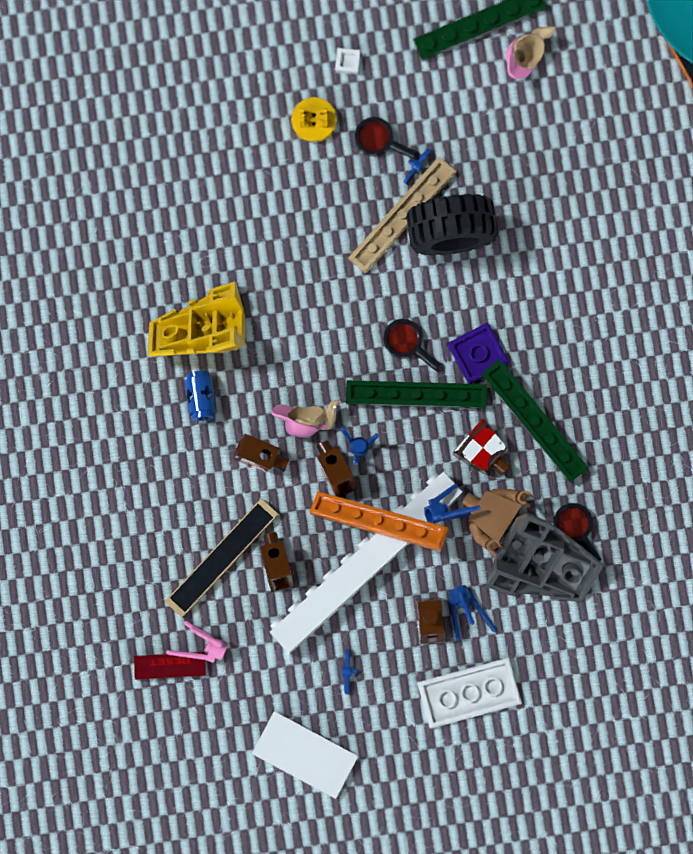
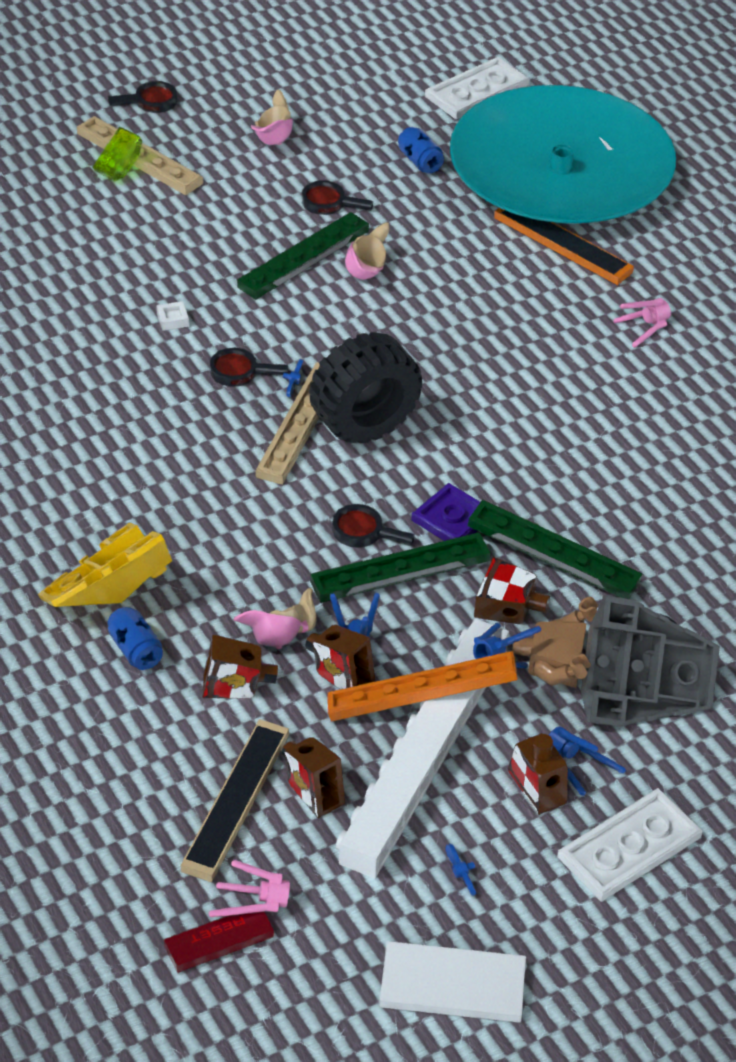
camera: 30 degrees left, 35 degrees down
(303, 119) = (157, 368): yellow plate -> none

